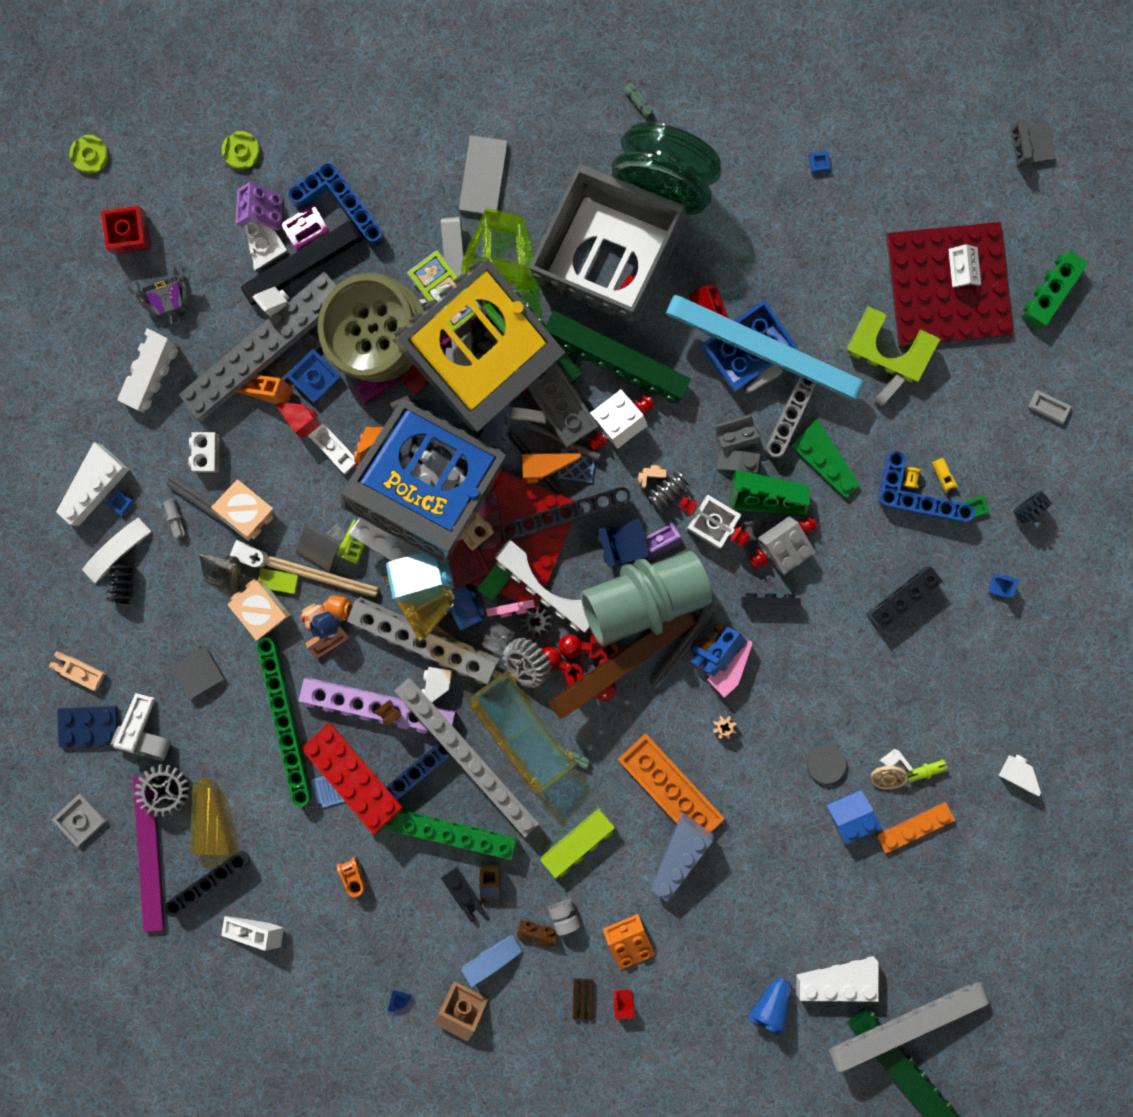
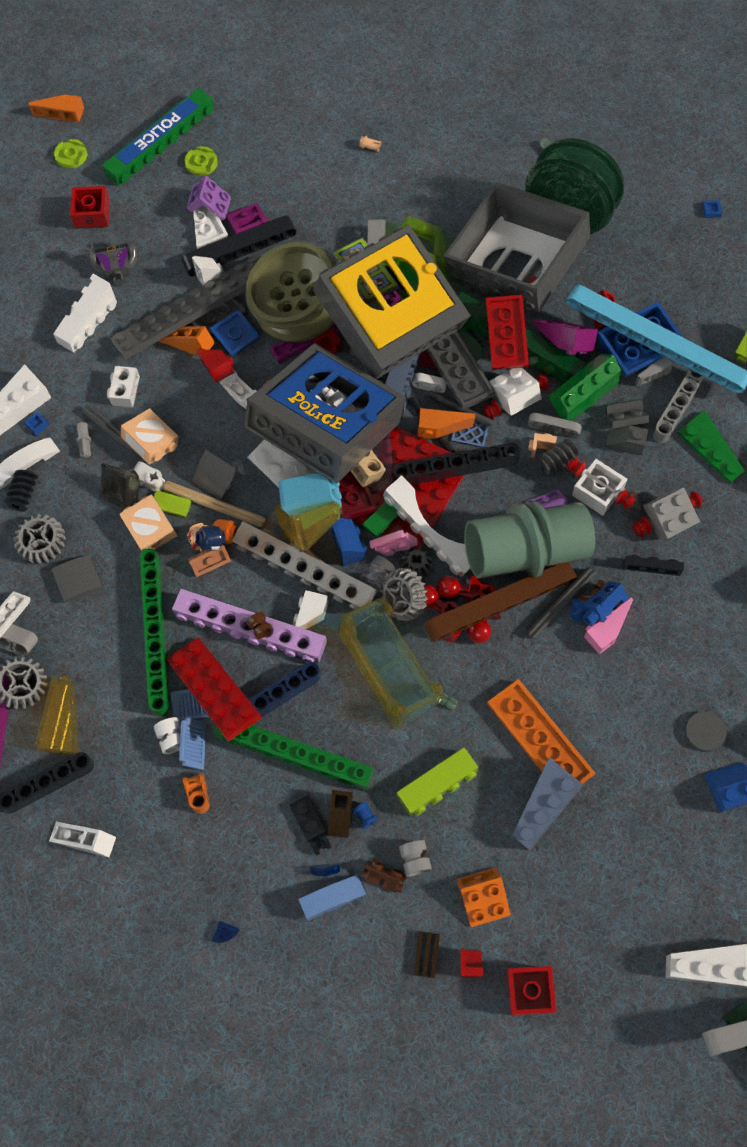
camera: 10 degrees right, 20 degrees down
(65, 92) = (60, 107): none -> orange slope
(146, 641) = (39, 528): none -> light grey gear
(187, 123) = (158, 137): none -> green brick
(318, 826) = (169, 733): none -> white wheel
(341, 832) = (192, 744): none -> medium blue window
(343, 198) = (275, 185): blue beam -> none
(345, 546) = (239, 484): lime slope -> none
(430, 109) = (370, 143): none -> light nougat pin
(461, 1011) = (290, 951): medium nougat slope -> none
(466, 757) = (333, 677): light grey brick -> none
(482, 934) = (325, 870): none -> clear blue tile
(483, 174) = (409, 194): light grey tile -> none
(513, 881) = (365, 815): none -> blue bush
(605, 359) = (507, 332): none -> red plate
(623, 543) = (507, 494): dark blue bracket -> none
(658, 451) = (558, 425): none -> light grey beam
(669, 347) = (568, 336): none -> magenta slope
(678, 1024) = (531, 991): none -> red brick
(691, 408) = (586, 387): none -> green slope
(726, 732) = (600, 687): light nougat gear -> none
(768, 494) = (654, 467): green wedge -> none
(772, 1007) = (638, 986): blue cone -> none

